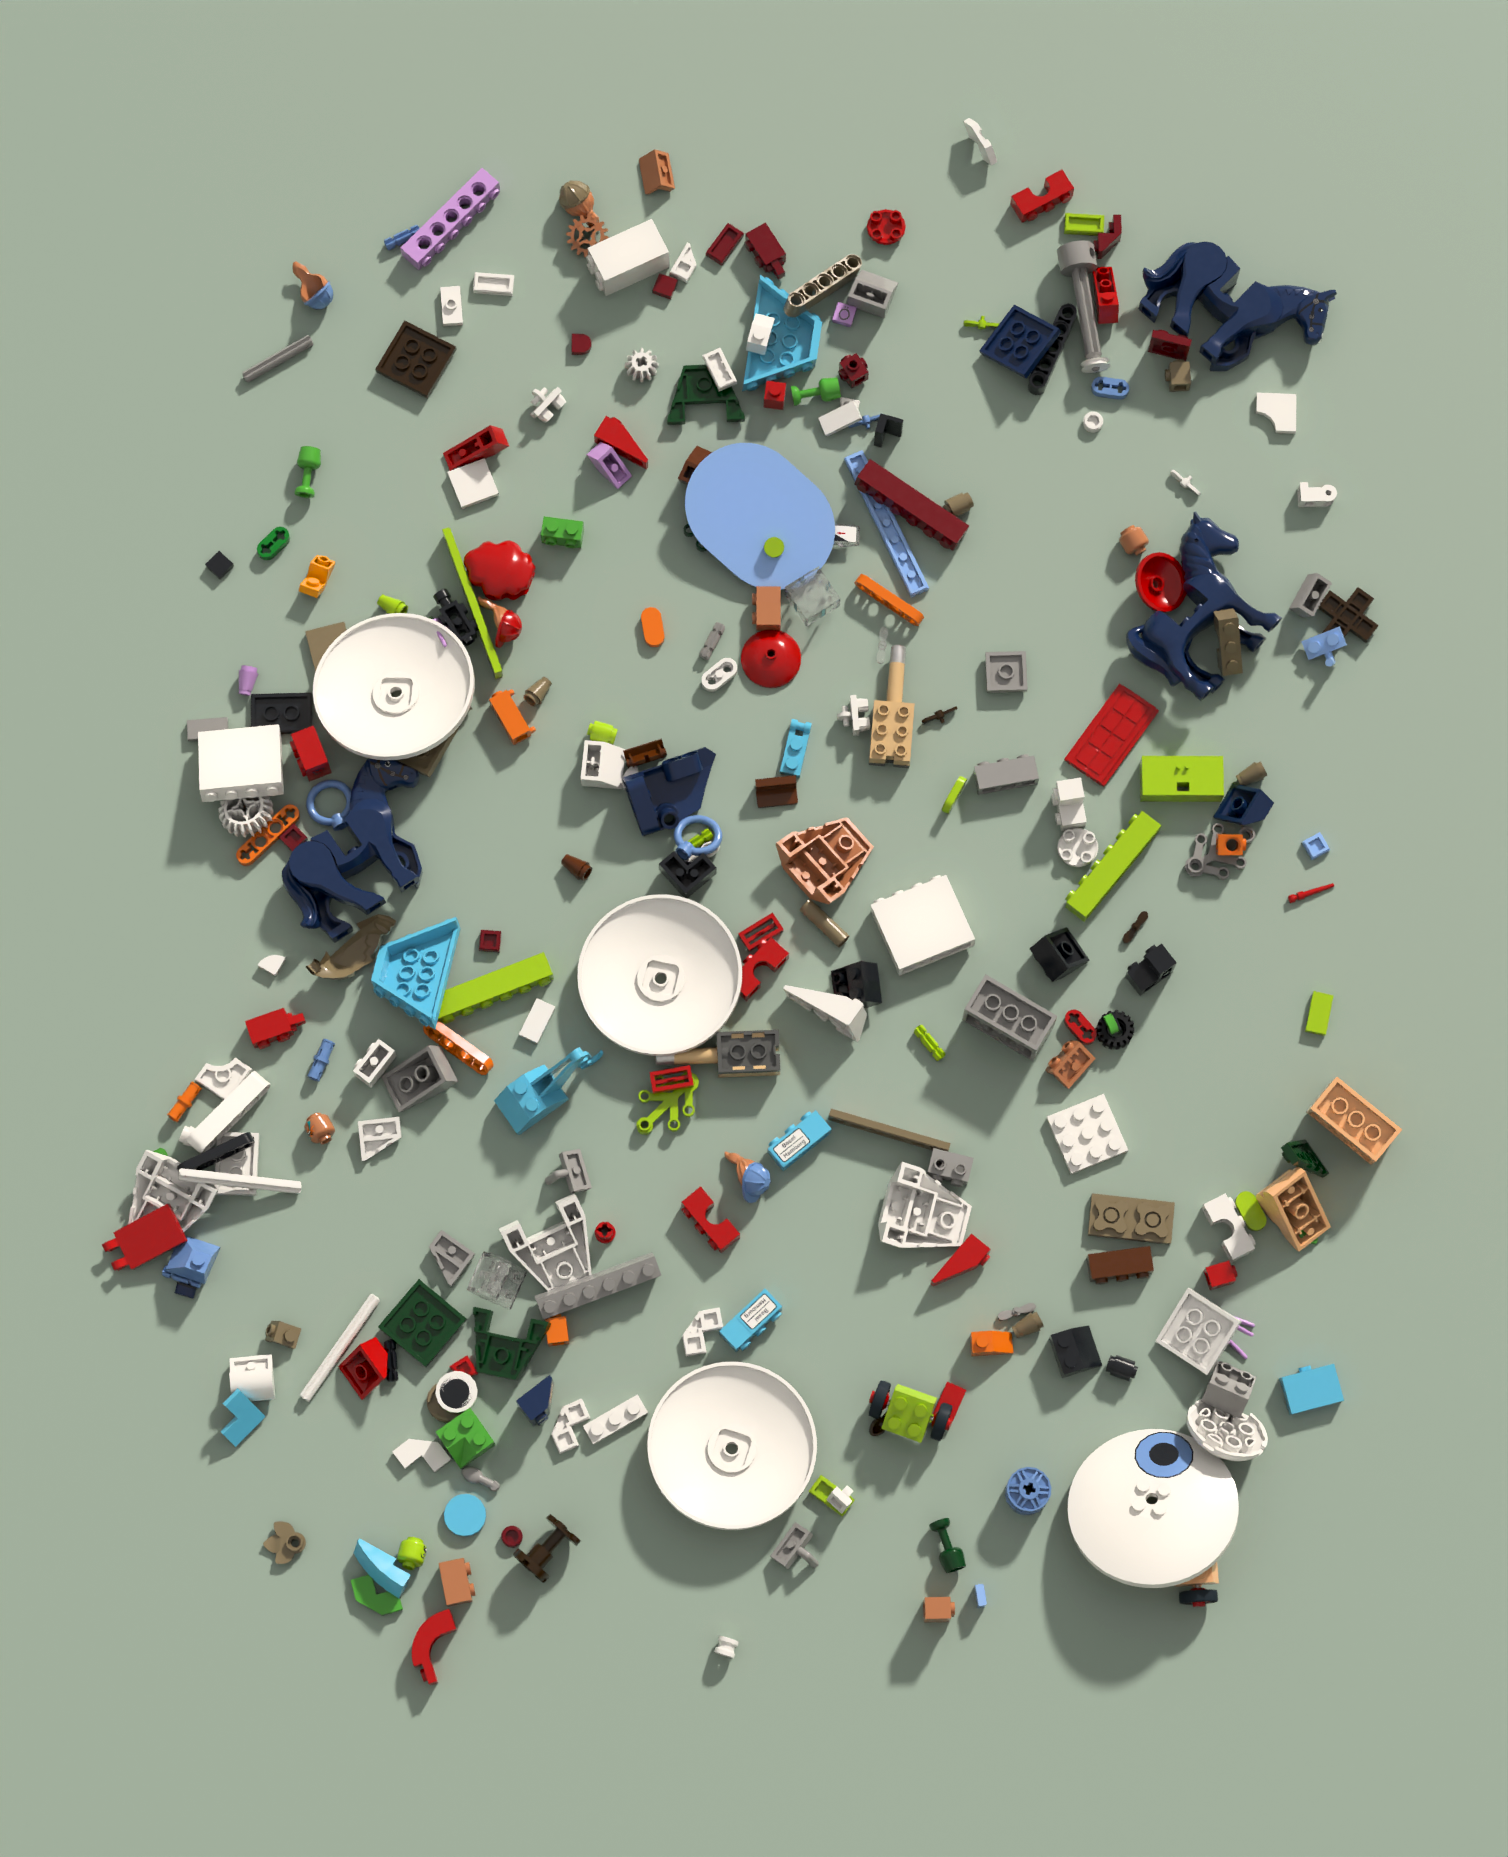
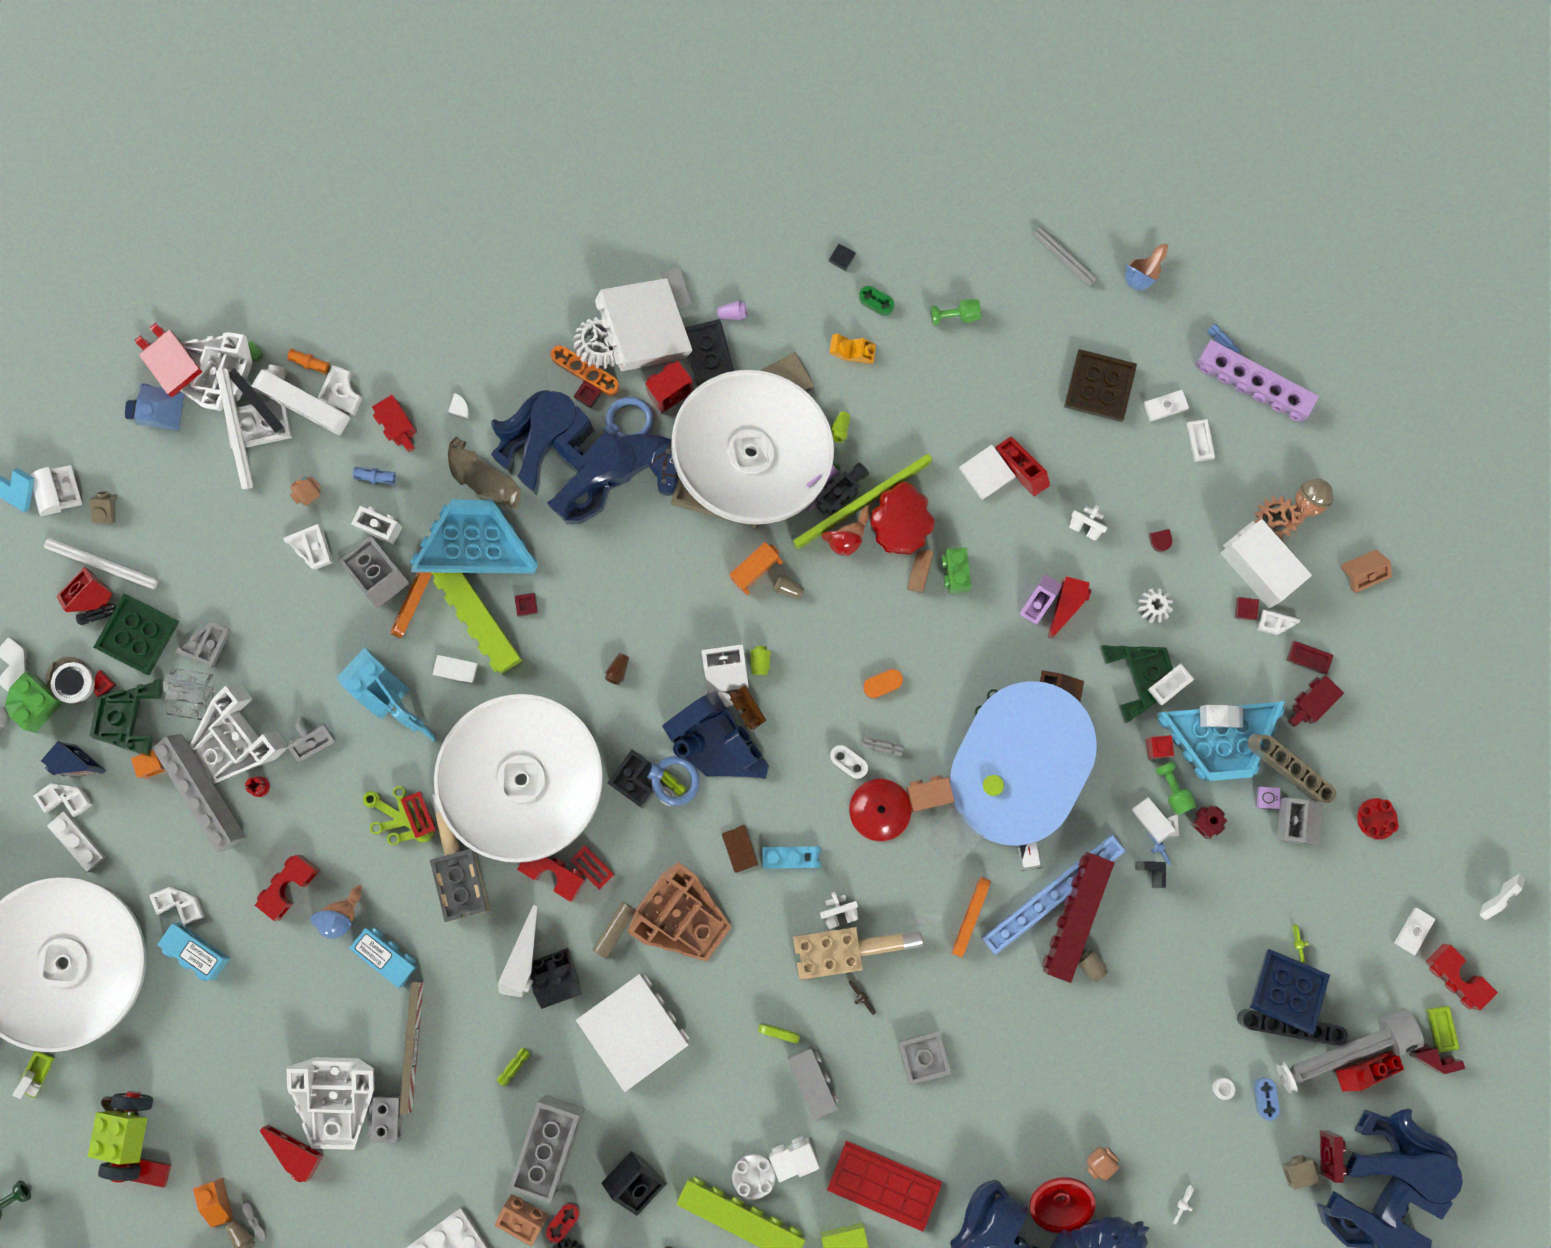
camera: 80 degrees right, 5 degrees up
(553, 566) = (920, 571): none -> medium nougat slope
(993, 224) = (1414, 931): none -> white plate

